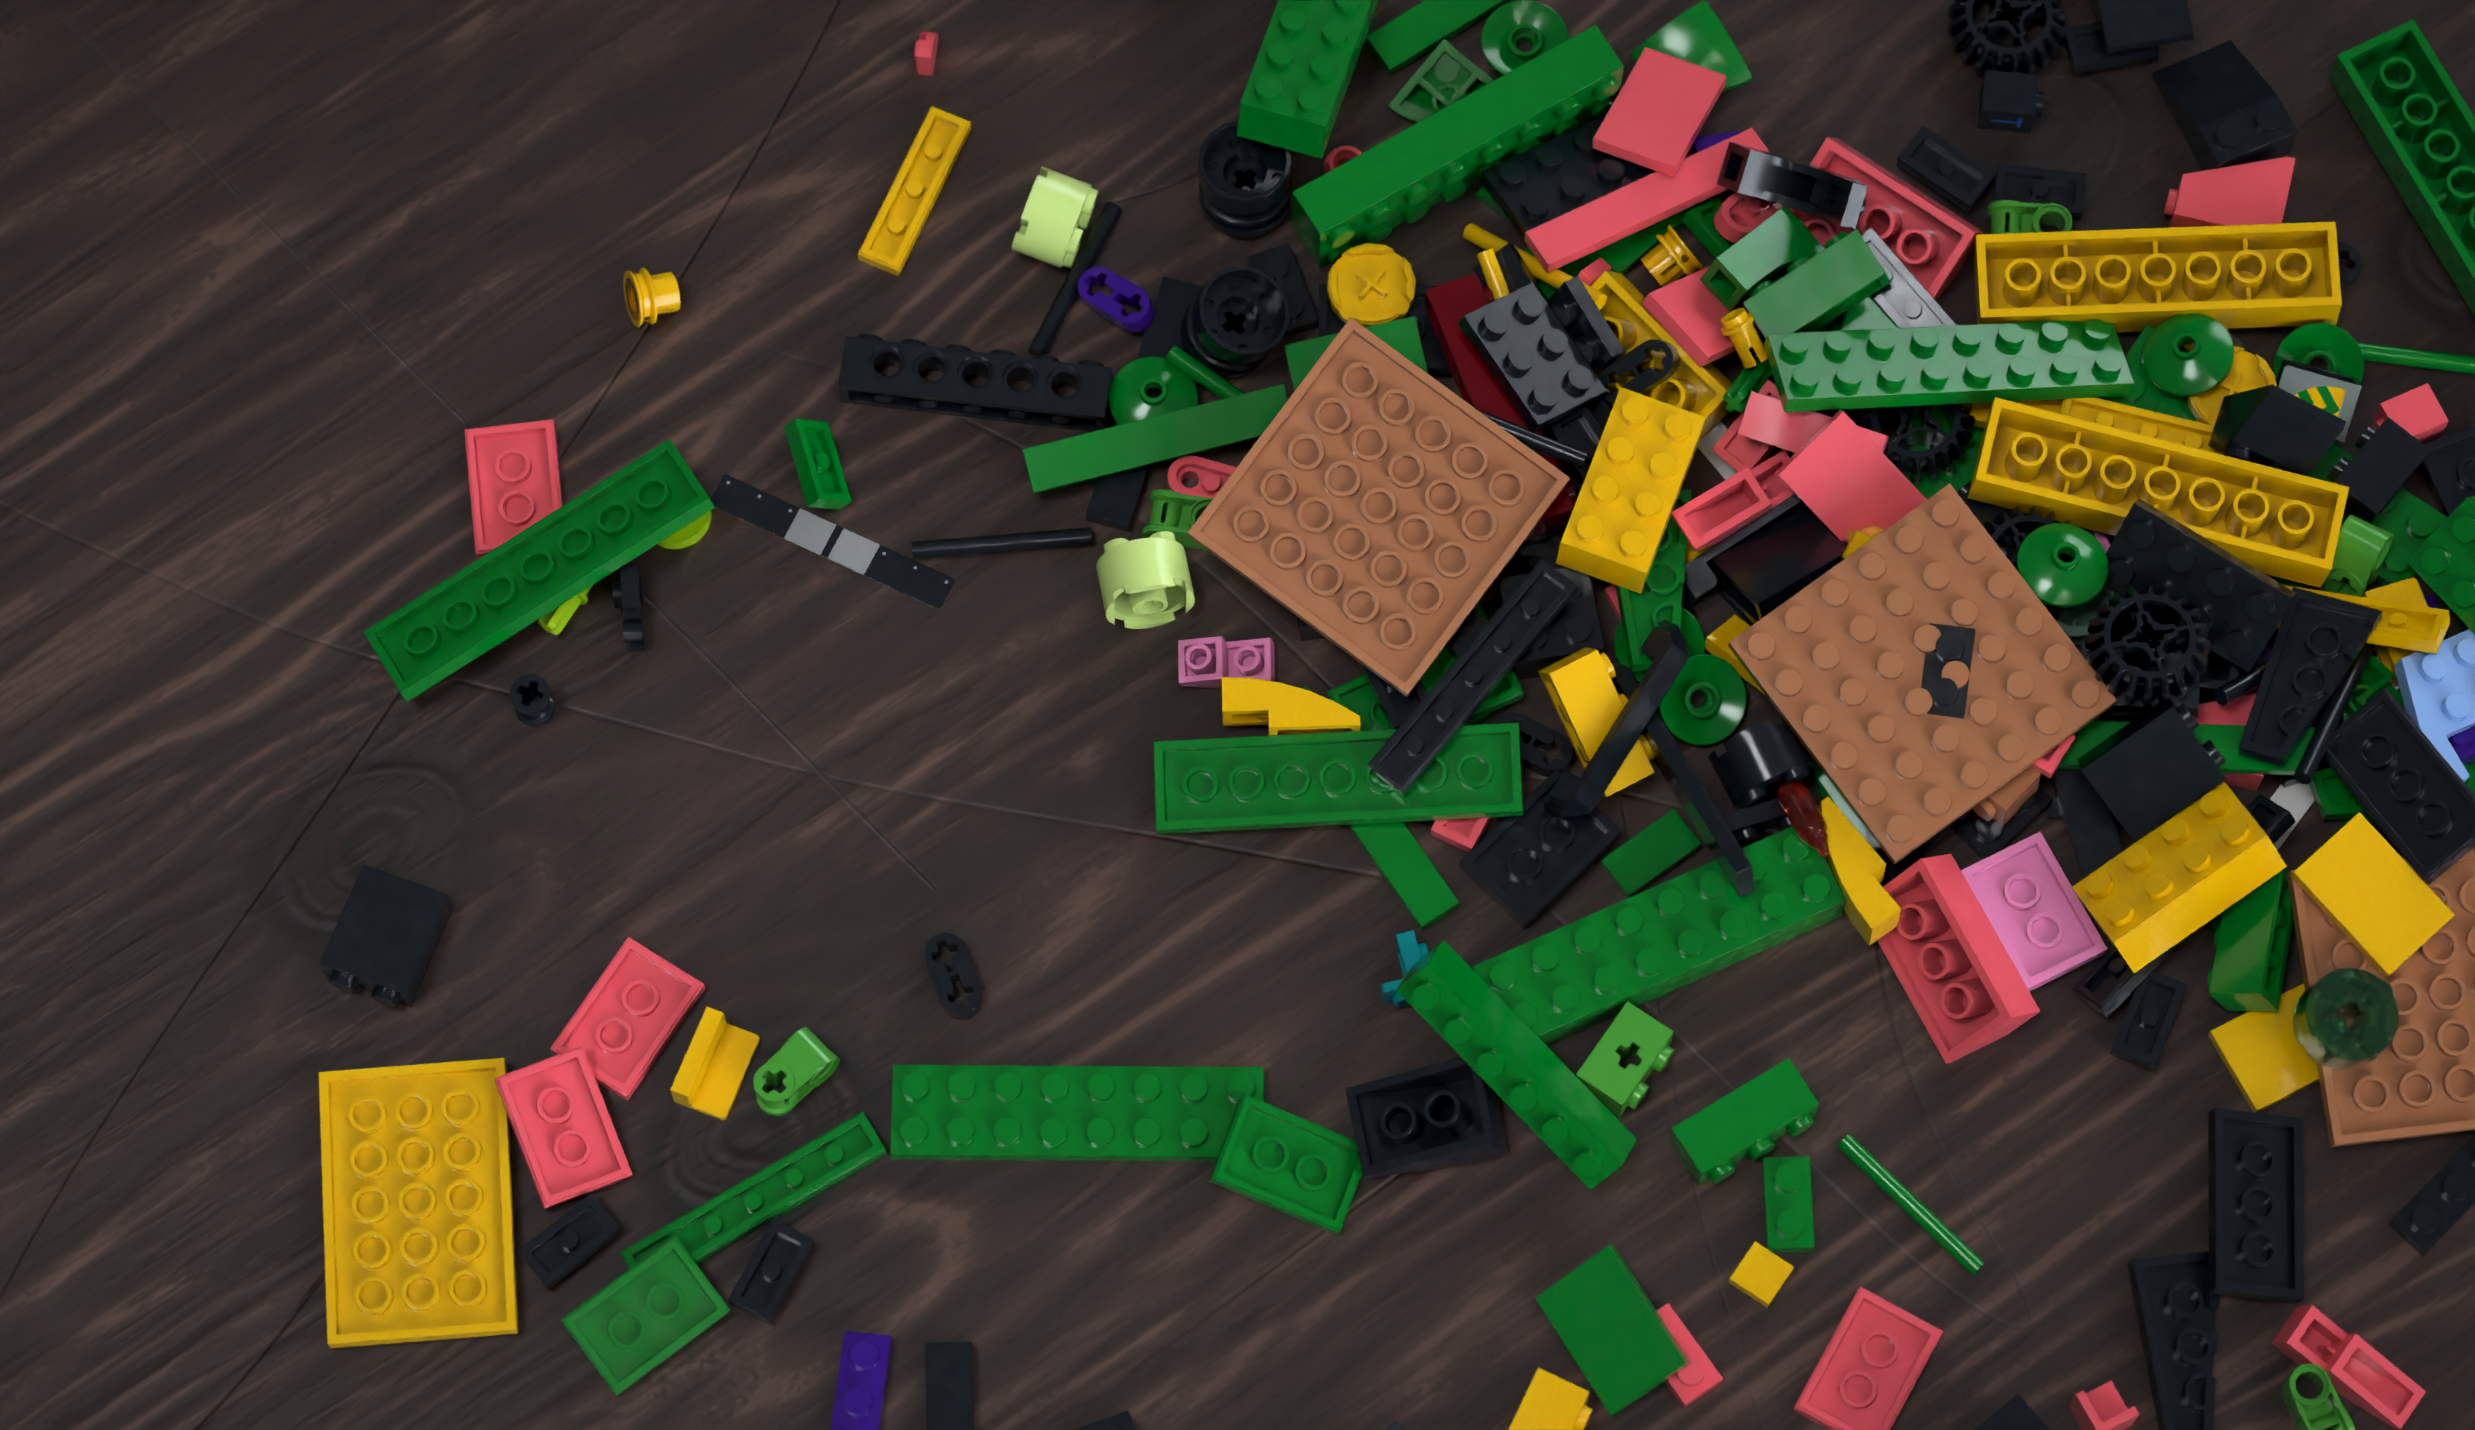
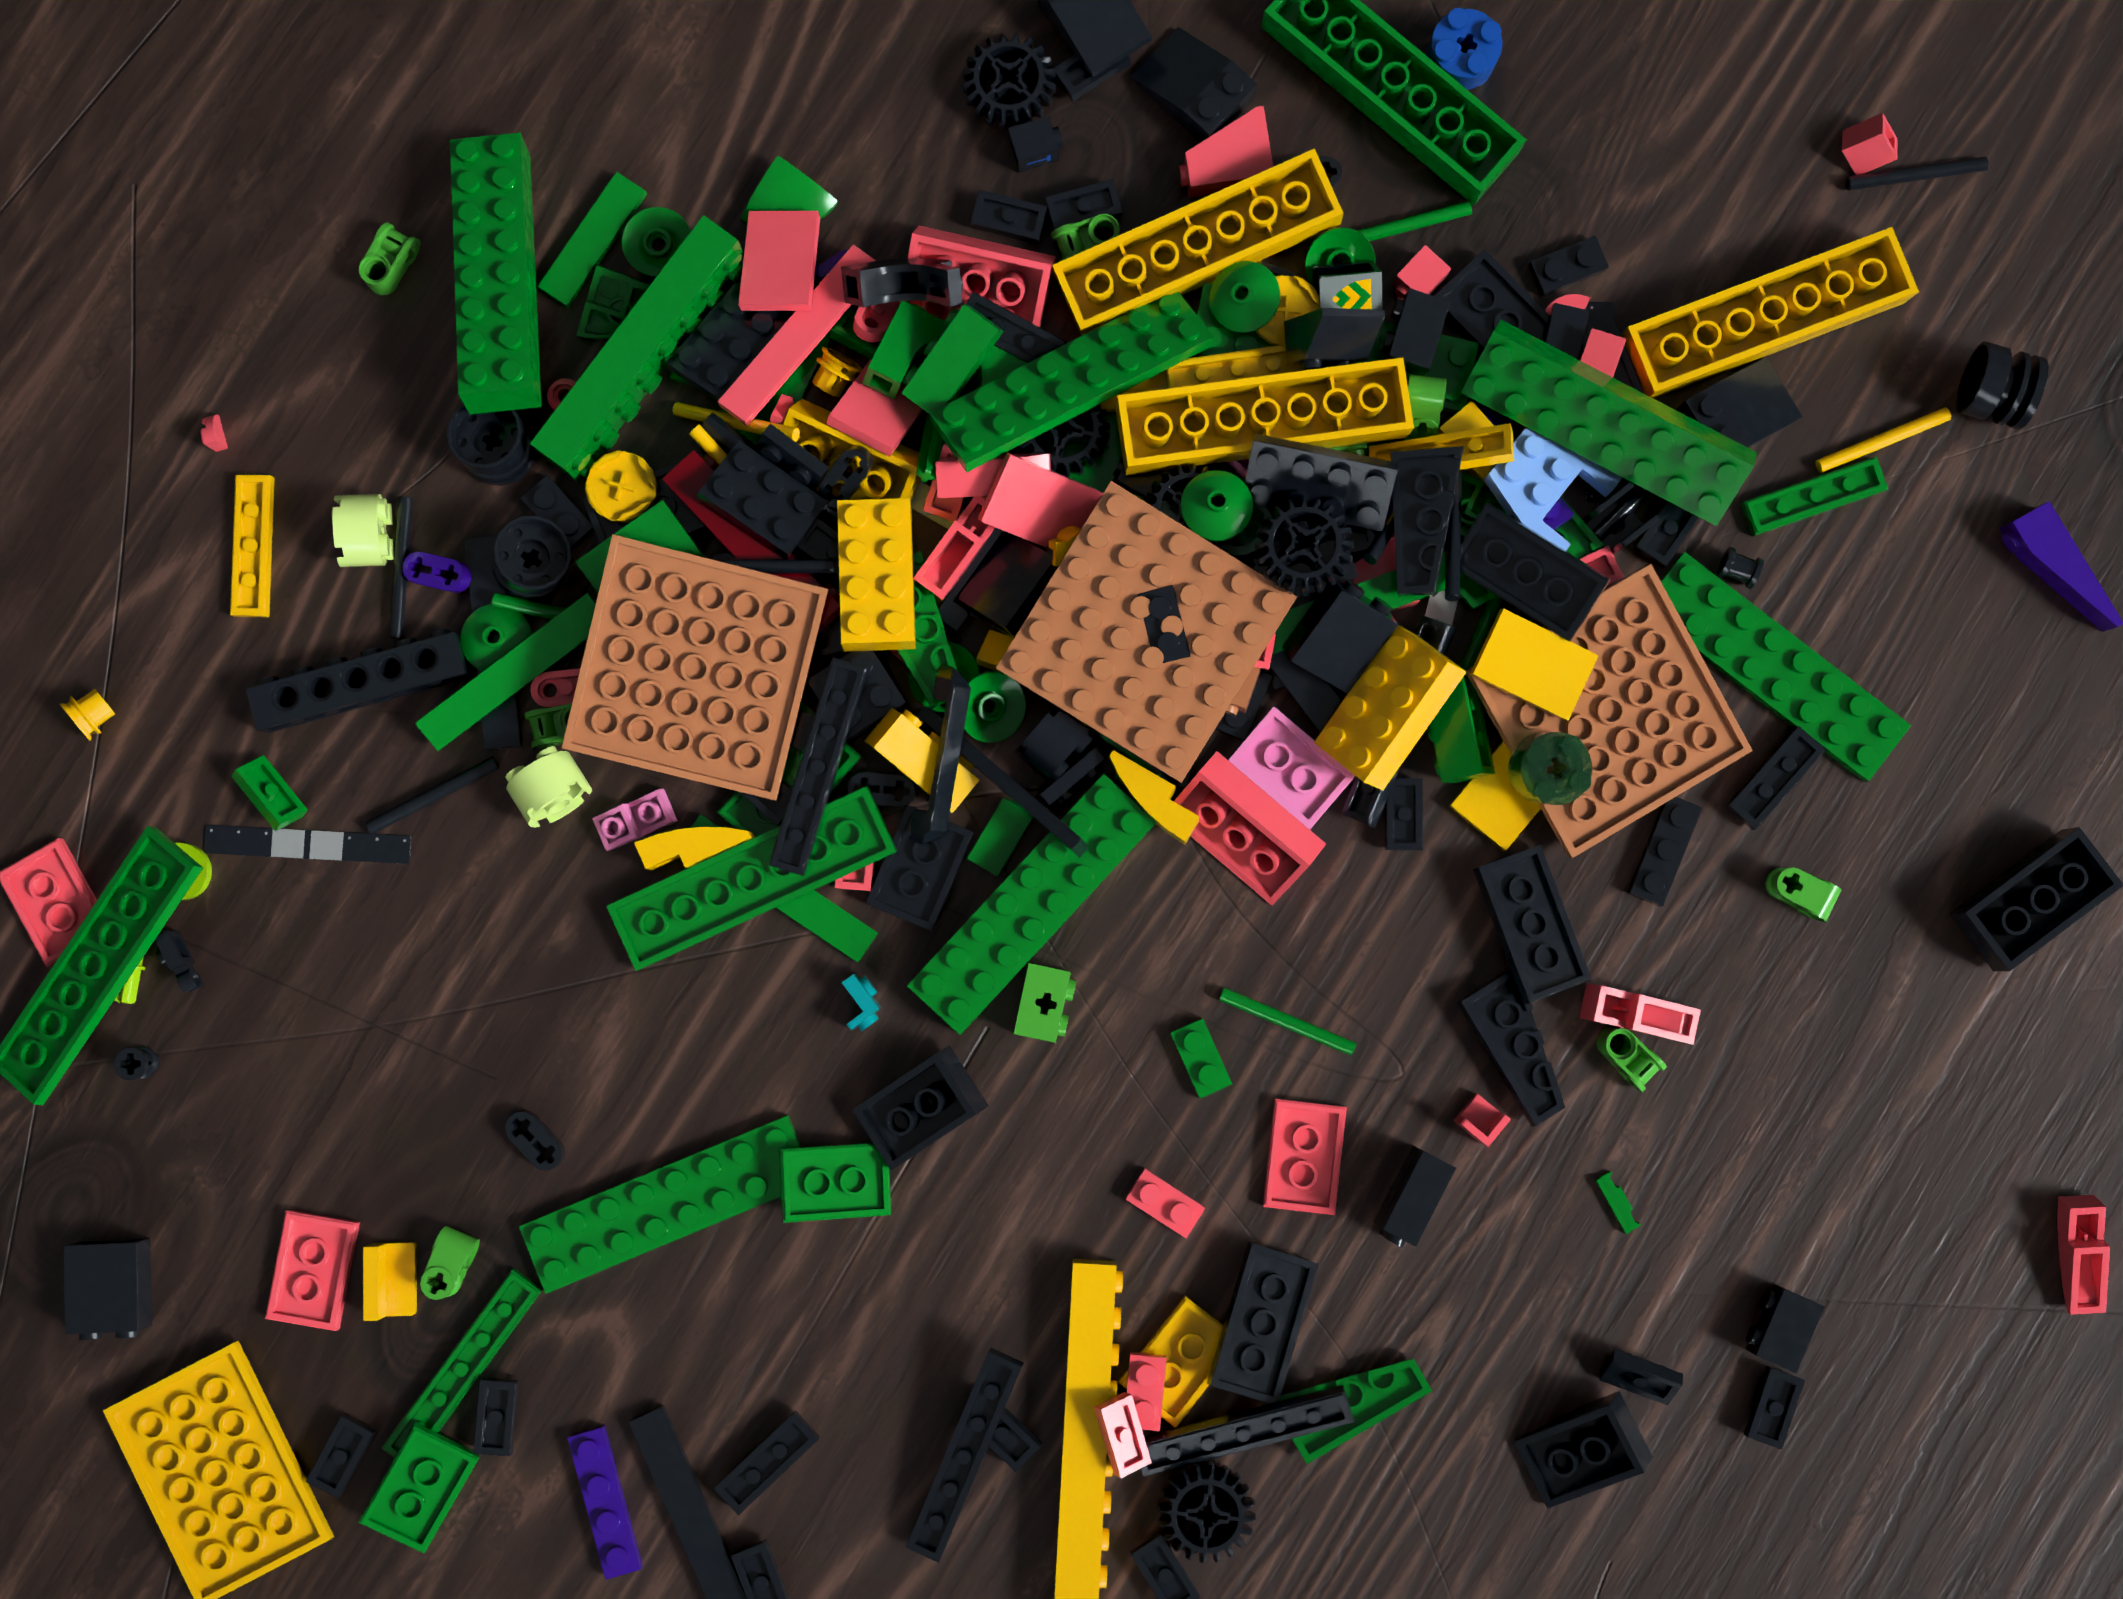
camera: 25 degrees left, 15 degrees up
(563, 1127) = (299, 1375): coral tile -> none
(1517, 1065) = (967, 1051): green brick -> none
(1612, 1330) = (1113, 1208): green tile -> none
(1743, 336) = (907, 414): yellow pin -> none
(1744, 1123) = (1148, 1014): green brick -> none
(1761, 1274) = (1202, 1118): yellow tile -> none
(1804, 816) = (1102, 773): clear red piece -> none

